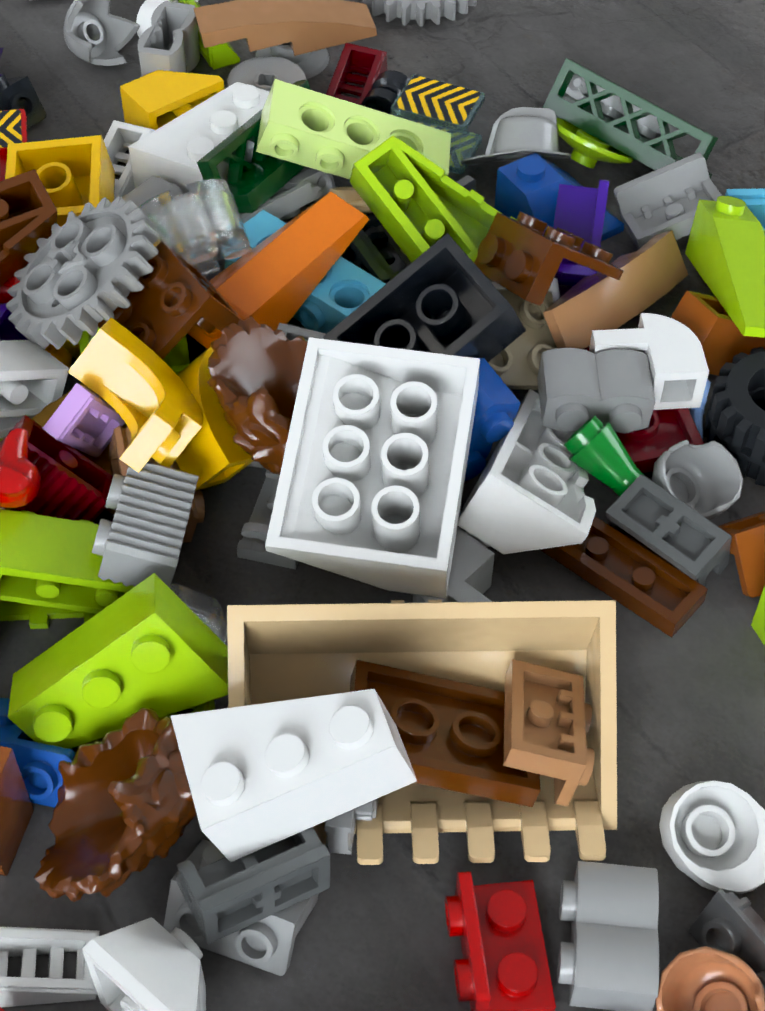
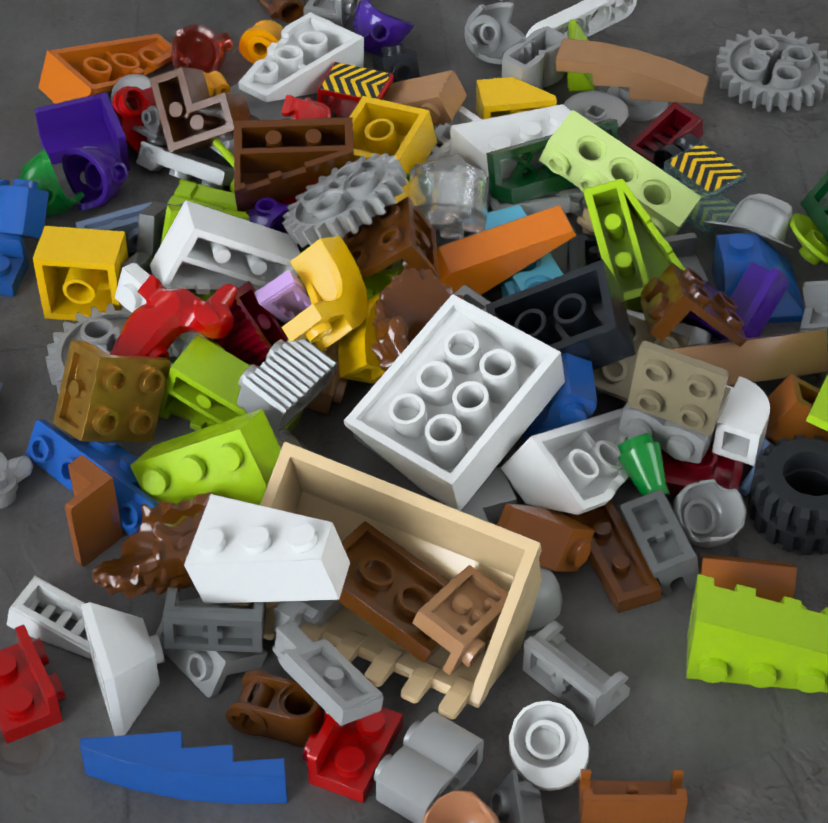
camera: 30 degrees right, 5 degrees down
(81, 114) = (437, 92): none -> medium nougat brick
(379, 949) = (274, 709): none -> reddish brown piece
(440, 883) = (326, 675): none -> light grey hinge
(560, 576) = (562, 539): none -> dark orange slope
(612, 350) = (678, 388): none -> dark tan bracket
(683, 738) = (572, 675): none -> light grey hinge

